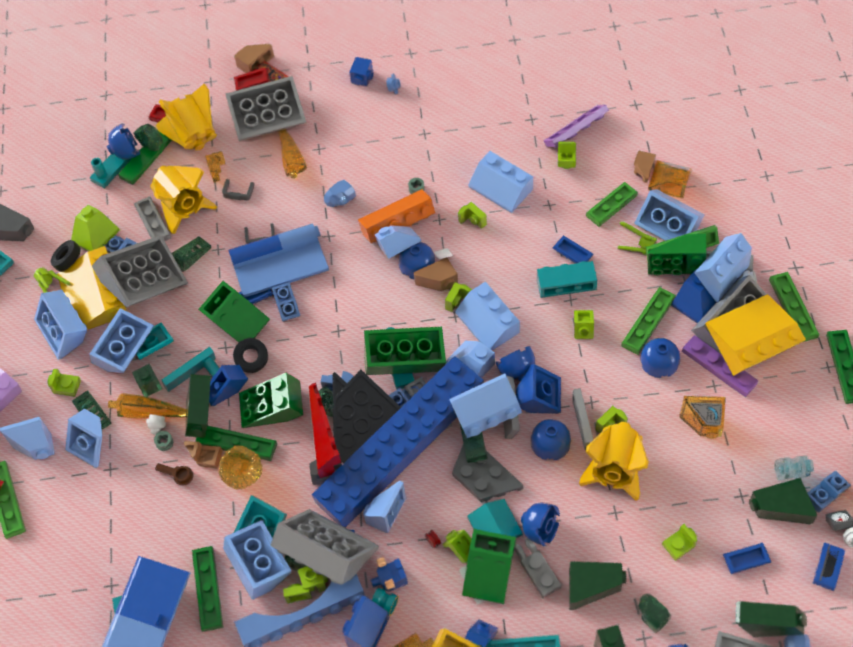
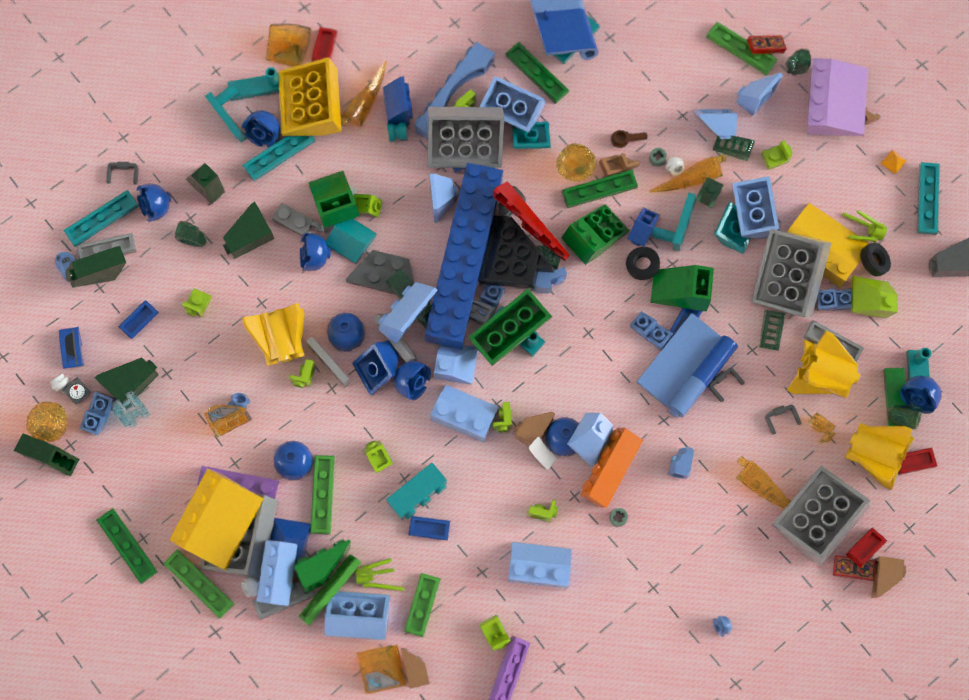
camera: 140 degrees right, 15 degrees up
(59, 323) = (823, 198): light blue slope -> none
(197, 406) = (645, 185): dark green slope -> none
(361, 71) = (764, 621): blue brick -> none
(389, 575) = (404, 151): blue piece -> none
(433, 539) = (391, 198): red piece -> none
(481, 633) = (308, 144): blue plate -> none
(679, 429) = (239, 400): none -> medium blue plate

